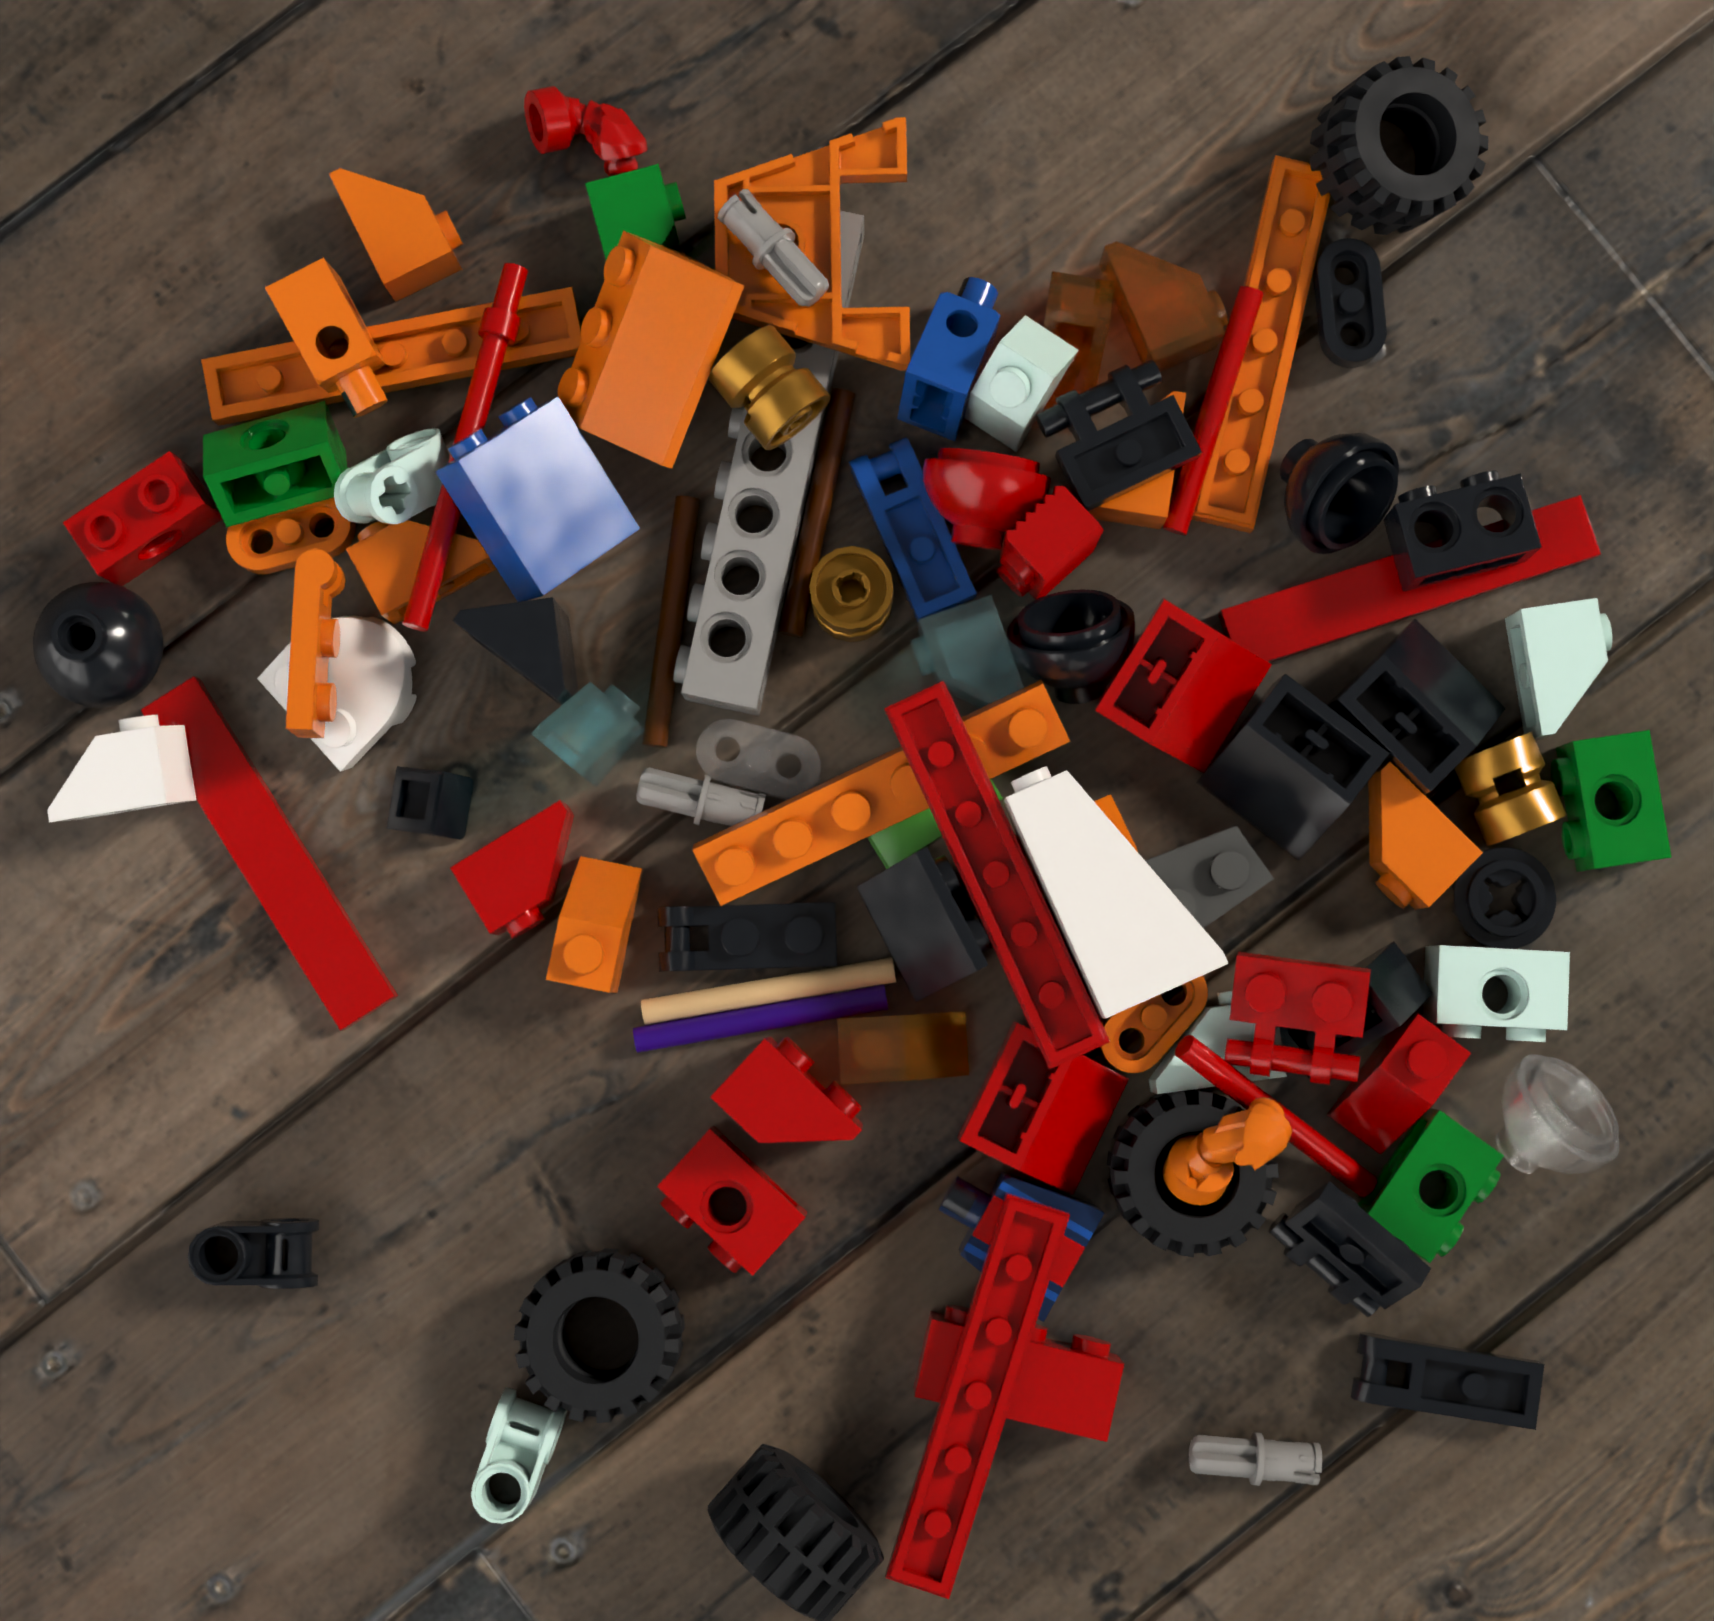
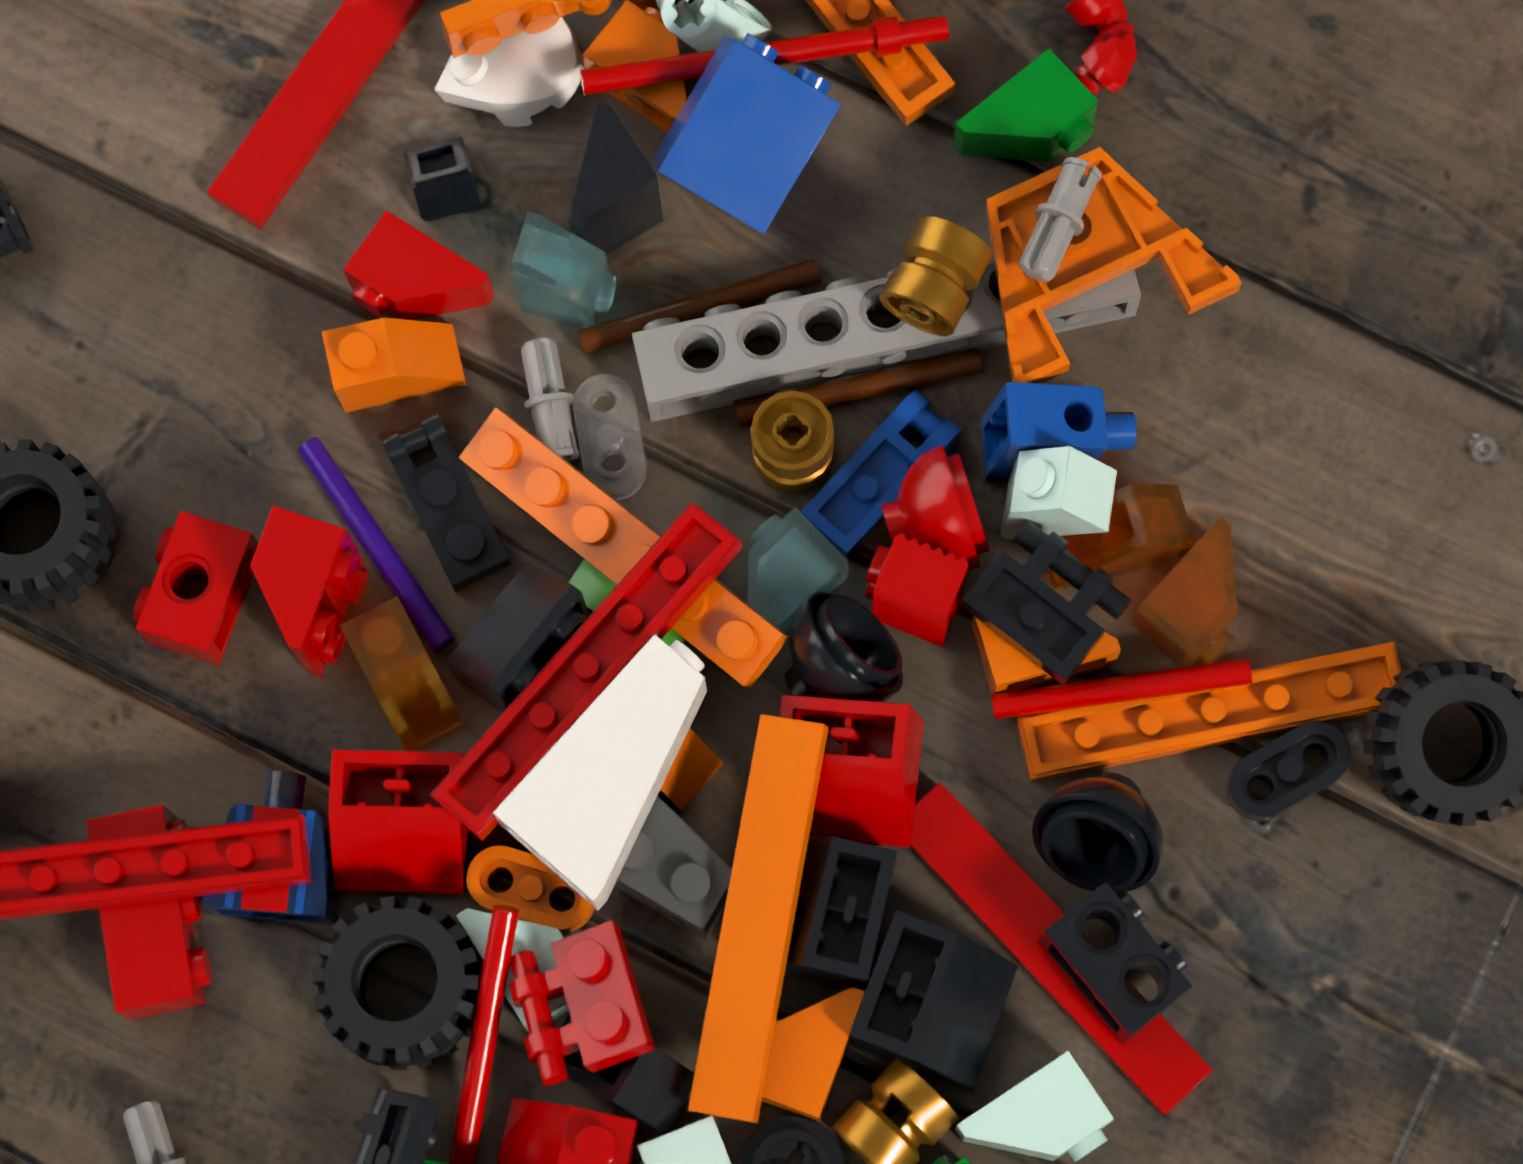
camera: 65 degrees right, 10 degrees down
(648, 348) = (922, 158): orange slope -> none
(768, 991) = (401, 535): tan bar -> none
(1203, 1163) = (408, 980): orange arm -> none
(1289, 823) = (758, 918): none -> orange tile

